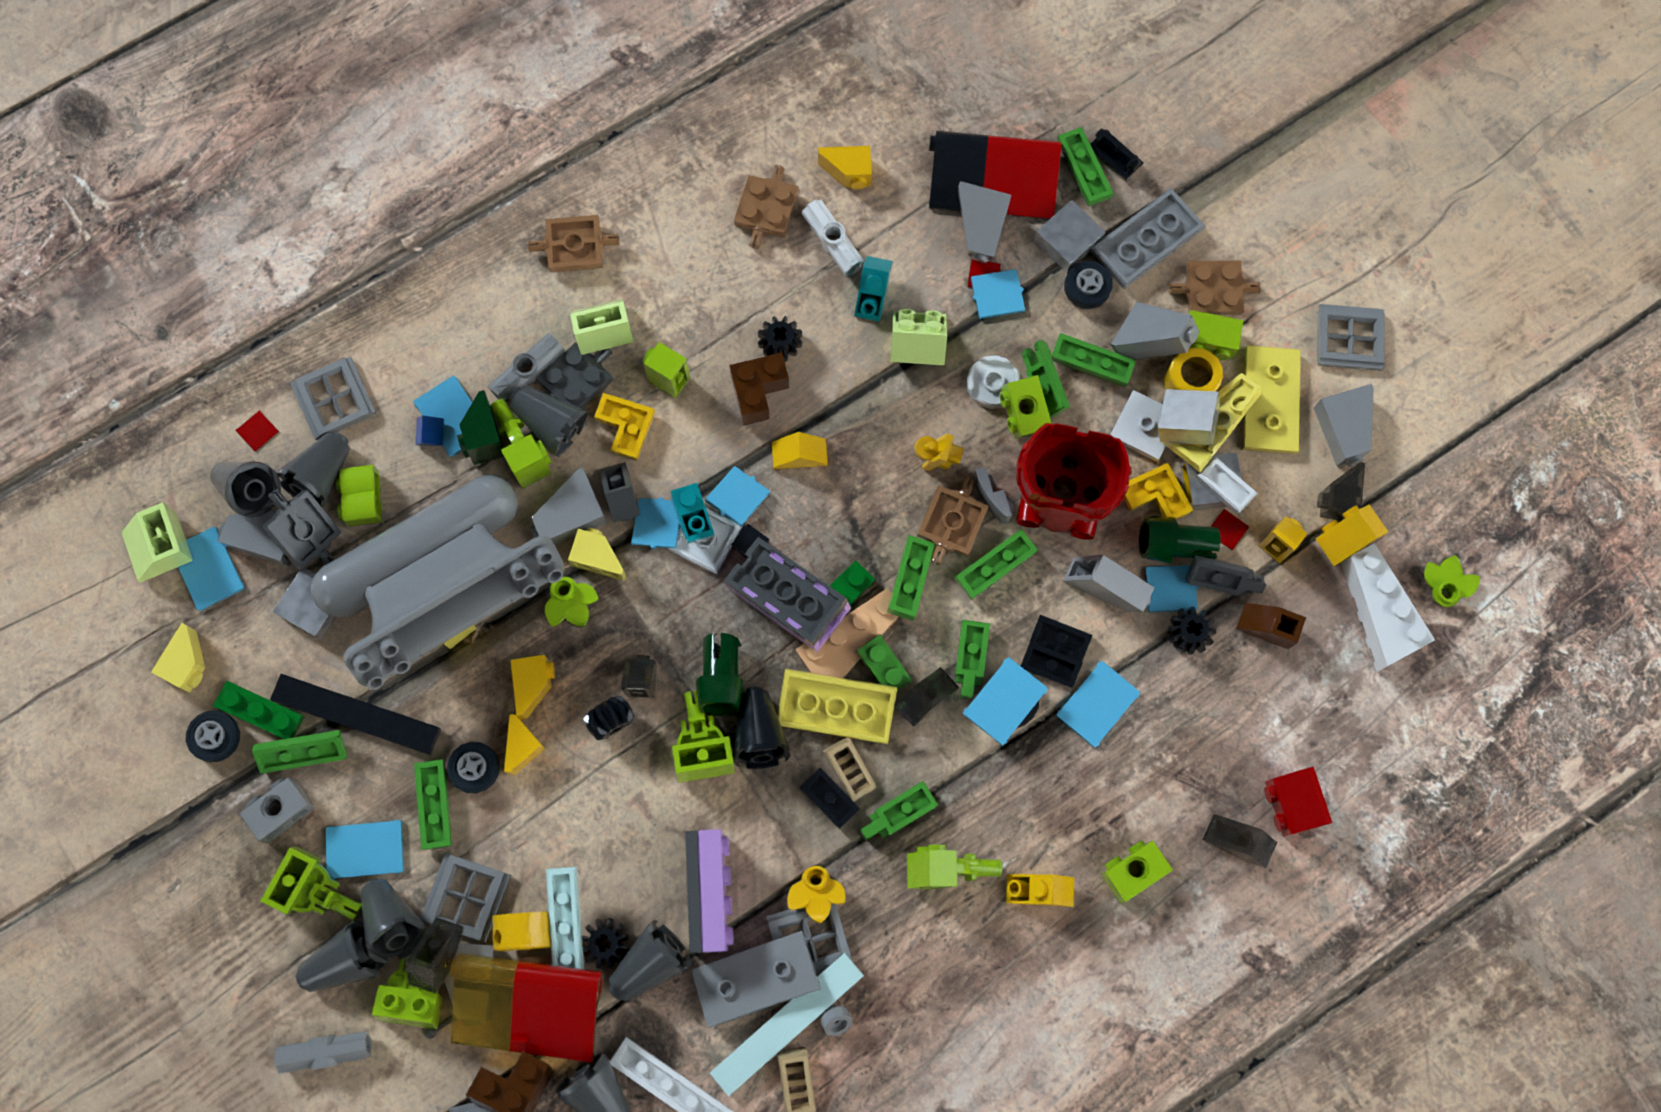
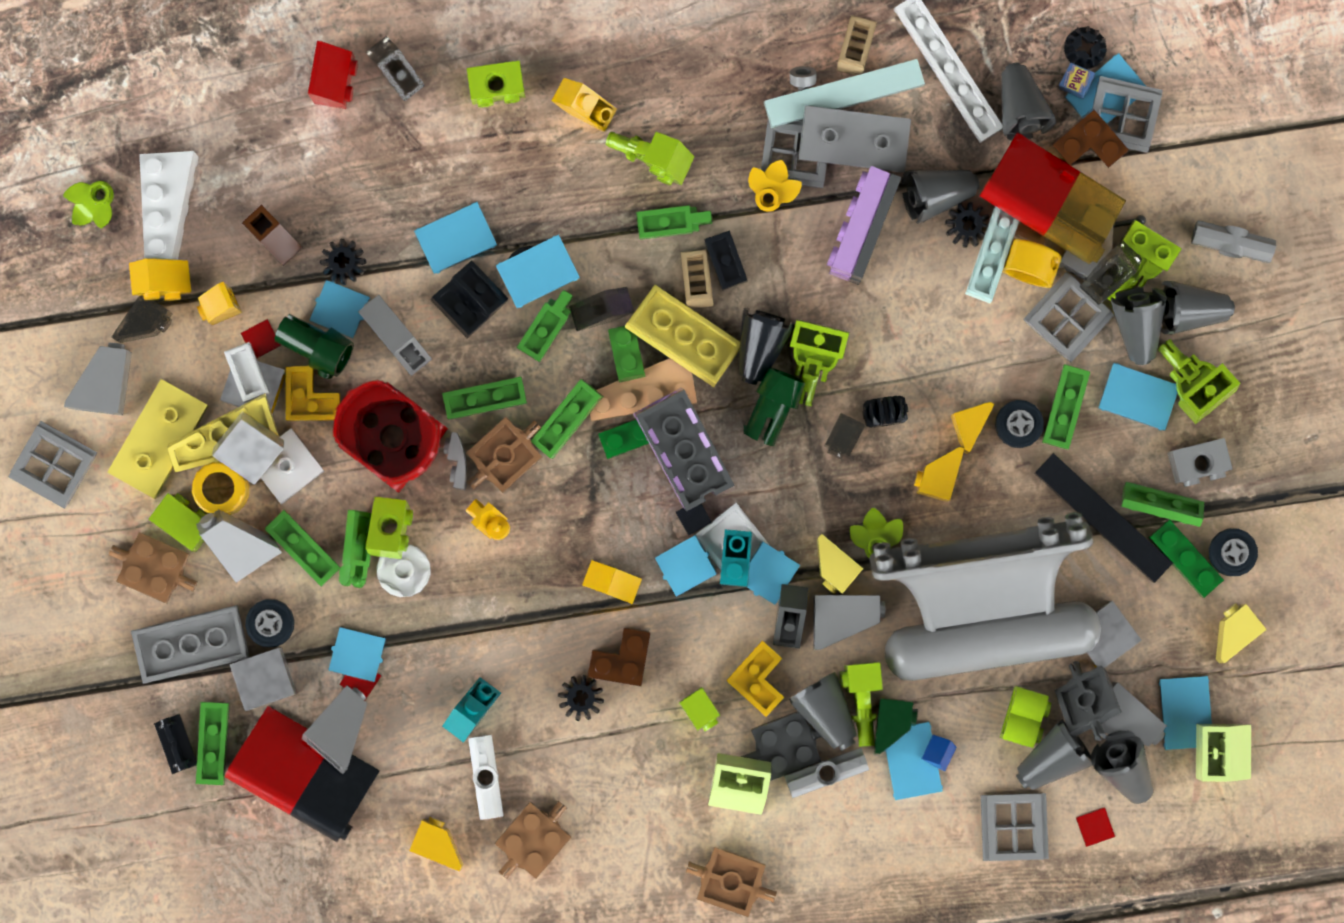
camera: 155 degrees left, 10 degrees up
(918, 337) = (452, 641): yellowish green slope -> none
(1223, 576) = (289, 295): dark grey hinge -> none

